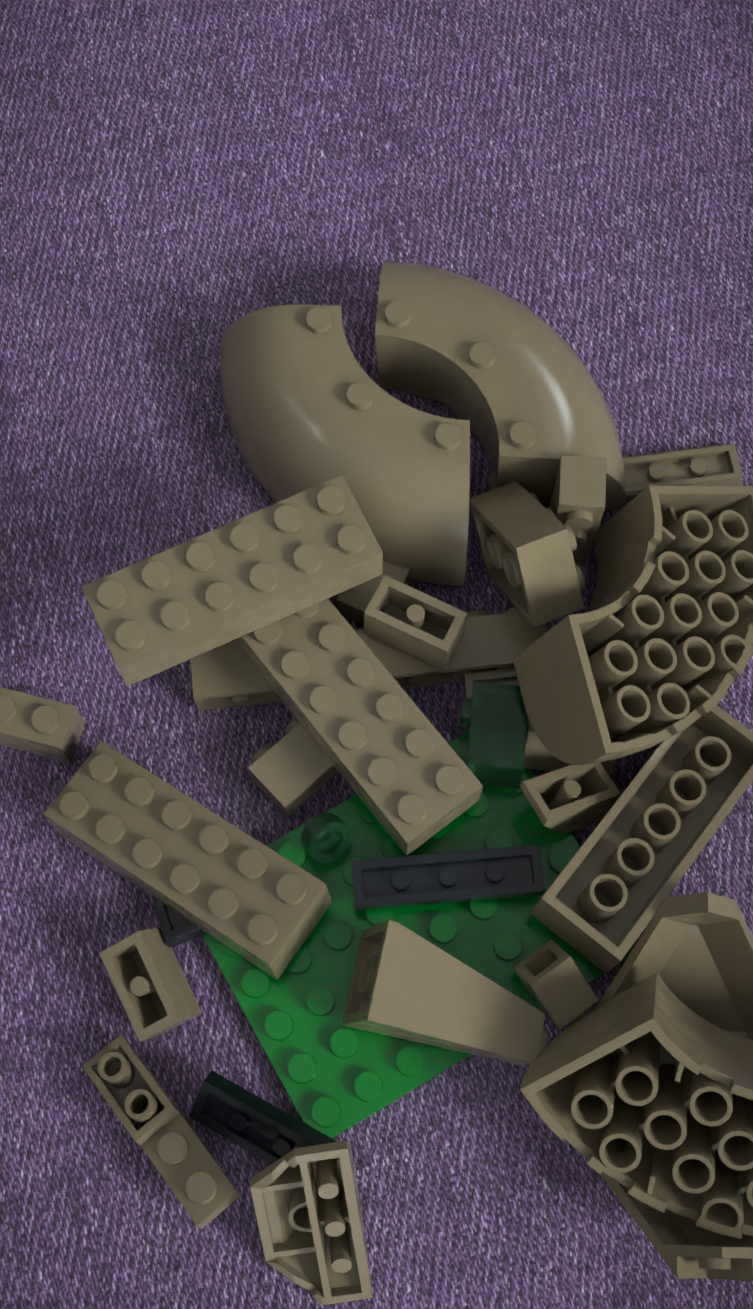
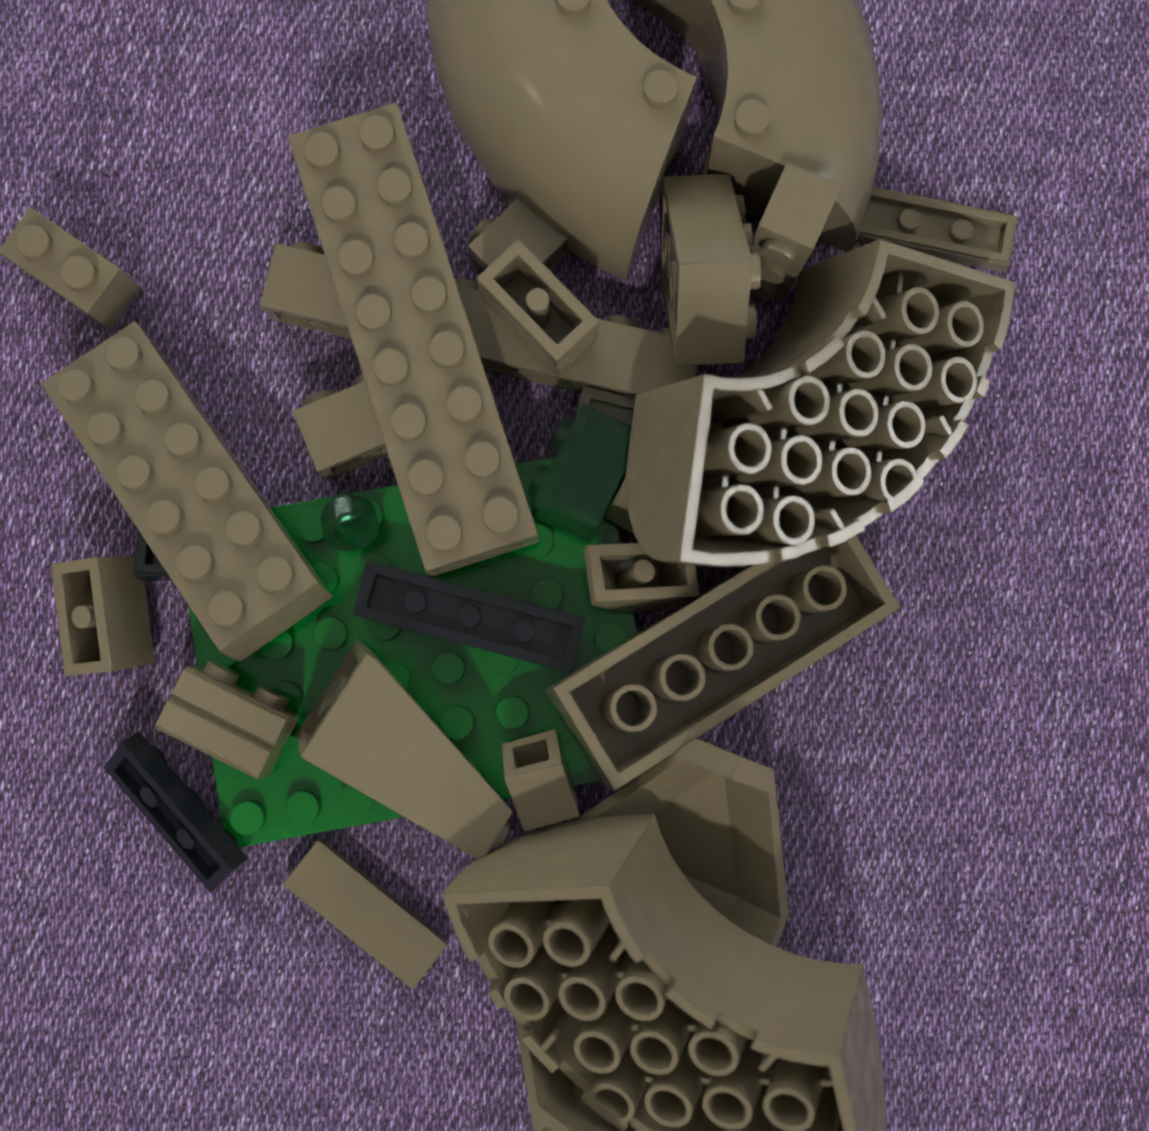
camera: 15 degrees right, 15 degrees up
(162, 1131) = (67, 765): dark tan slope -> none
(234, 580) = (325, 182): dark tan brick -> none
(286, 1027) = (227, 719): none -> dark tan brick
(314, 1222) = (191, 930): dark tan wedge -> none
(452, 1158) = (366, 913): none -> dark tan tile

